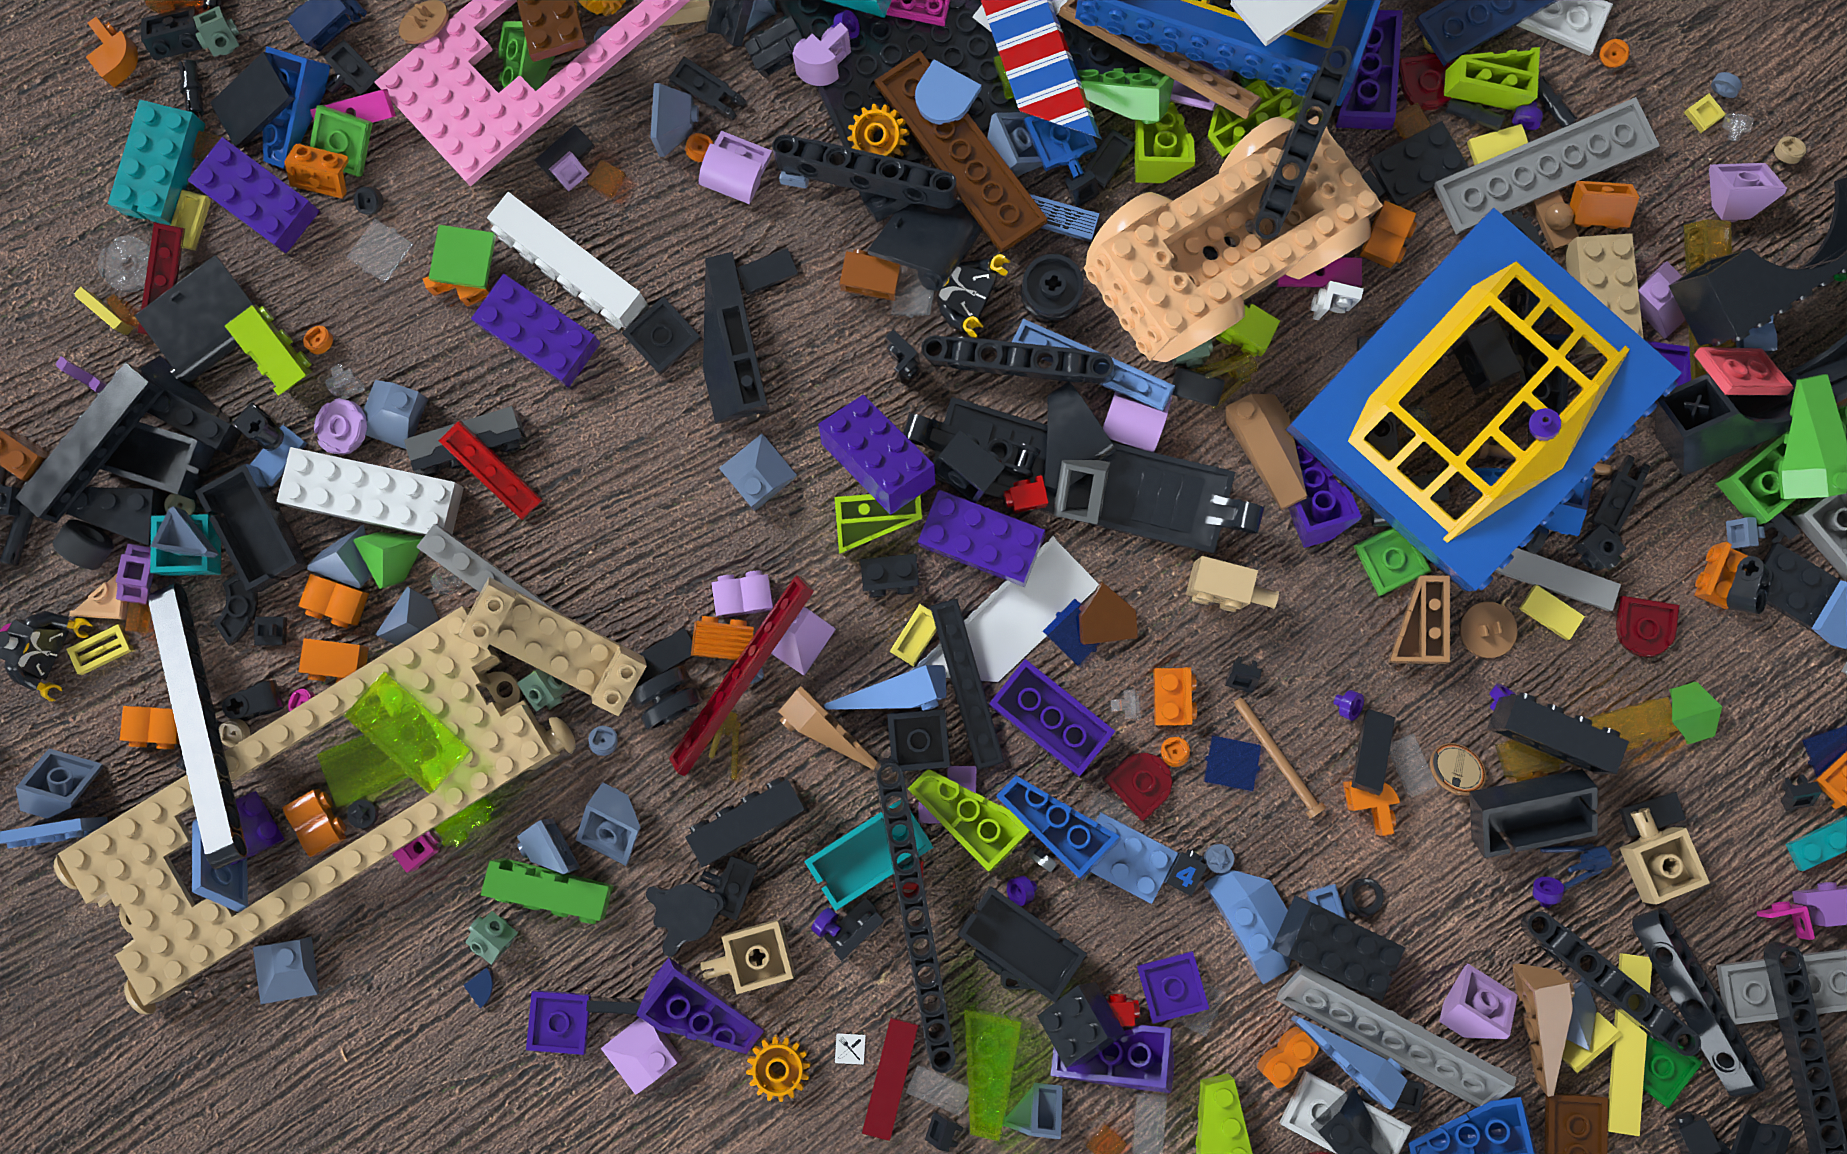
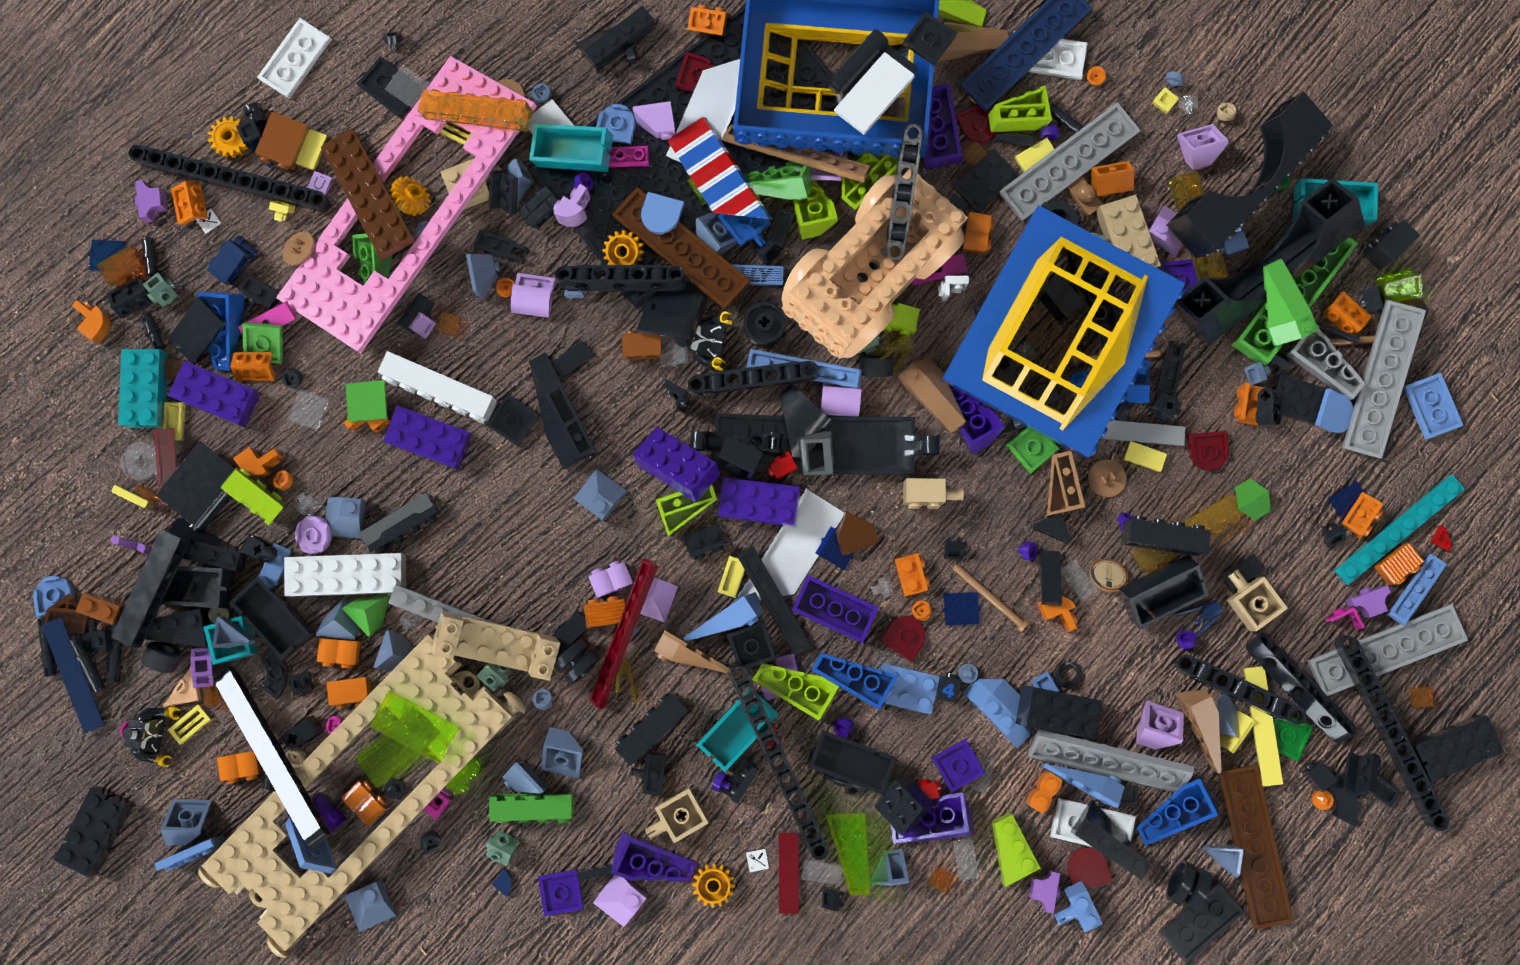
camera: 15 degrees left, 0 degrees up
(286, 308) = (256, 465): none -> orange brick
(392, 901) = (430, 841): none -> black tile
(490, 469) = (422, 538): red tile -> none
(685, 912) = (625, 798): black tile -> none
(1041, 858) = (851, 703): dark grey tile -> none
(1395, 681) = (1053, 527): none -> black slope
(1544, 424) = (1104, 344): dark purple tile -> none
(1743, 371) = (1228, 268): coral tile -> none

